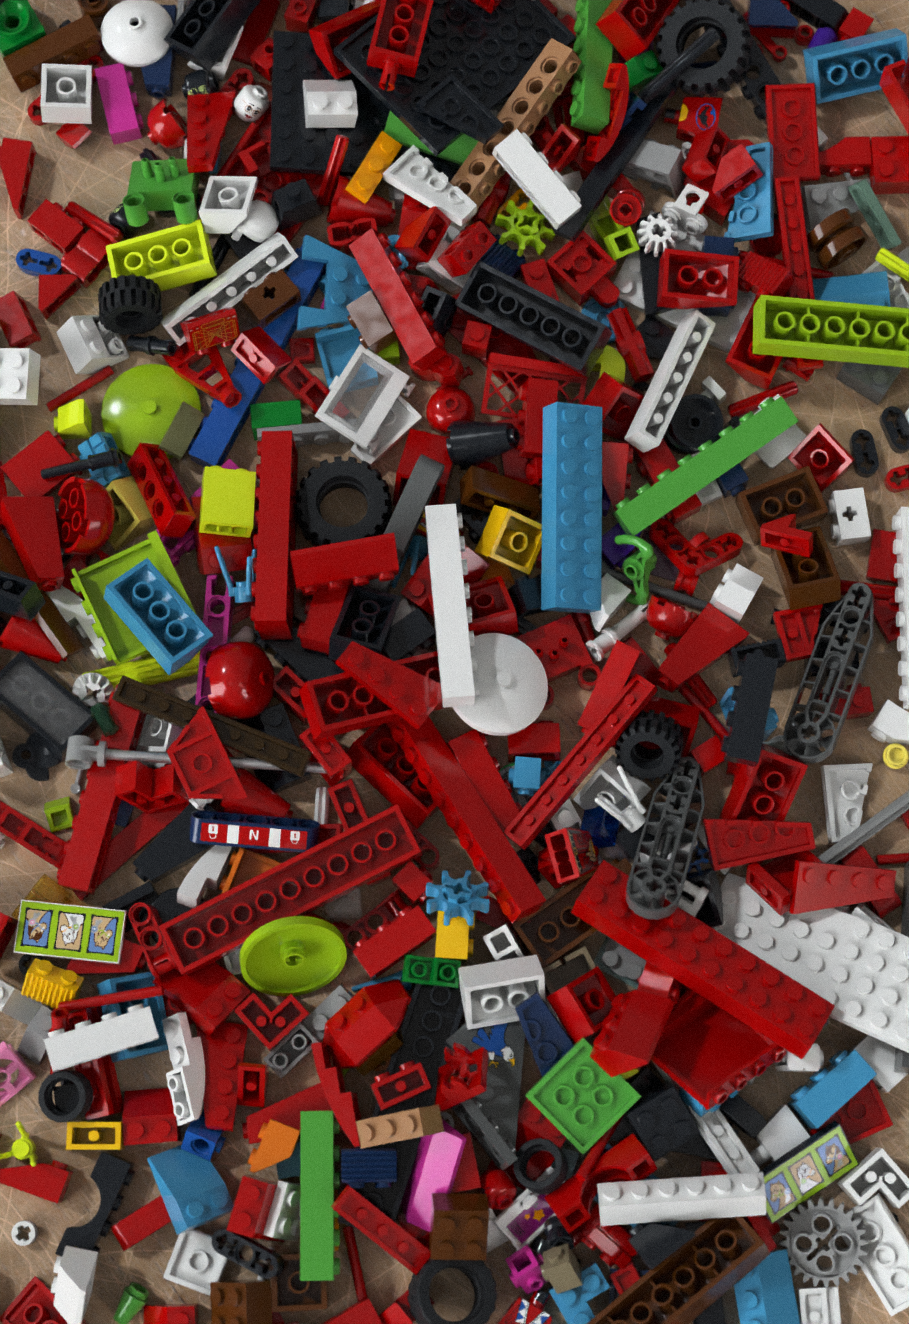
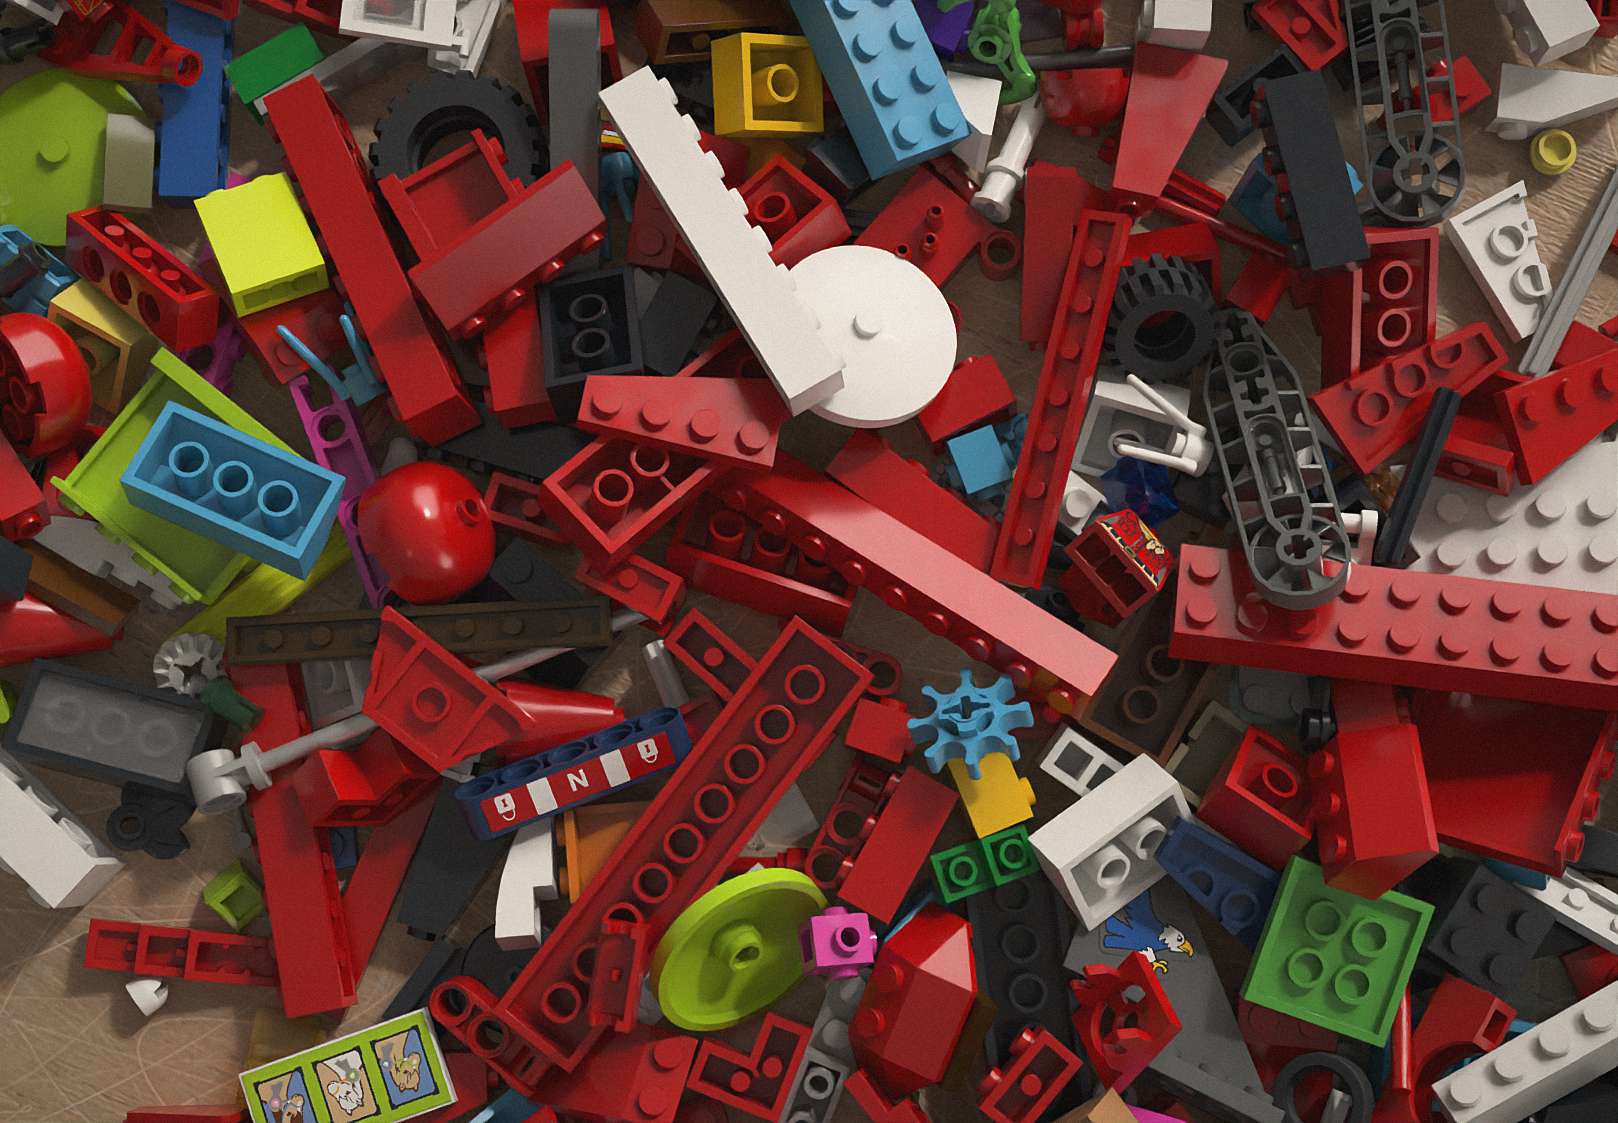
camera: 20 degrees left, 5 degrees up
(228, 936) = (618, 974): none -> red hinge
(330, 522) = (451, 193): none -> red panel
(340, 975) = (836, 943): none -> dark pink brick
(629, 980) = (1315, 723): none -> black plate
(724, 883) = (1384, 486): none -> clear orange bush
(738, 883) = (1417, 477): none -> black axle

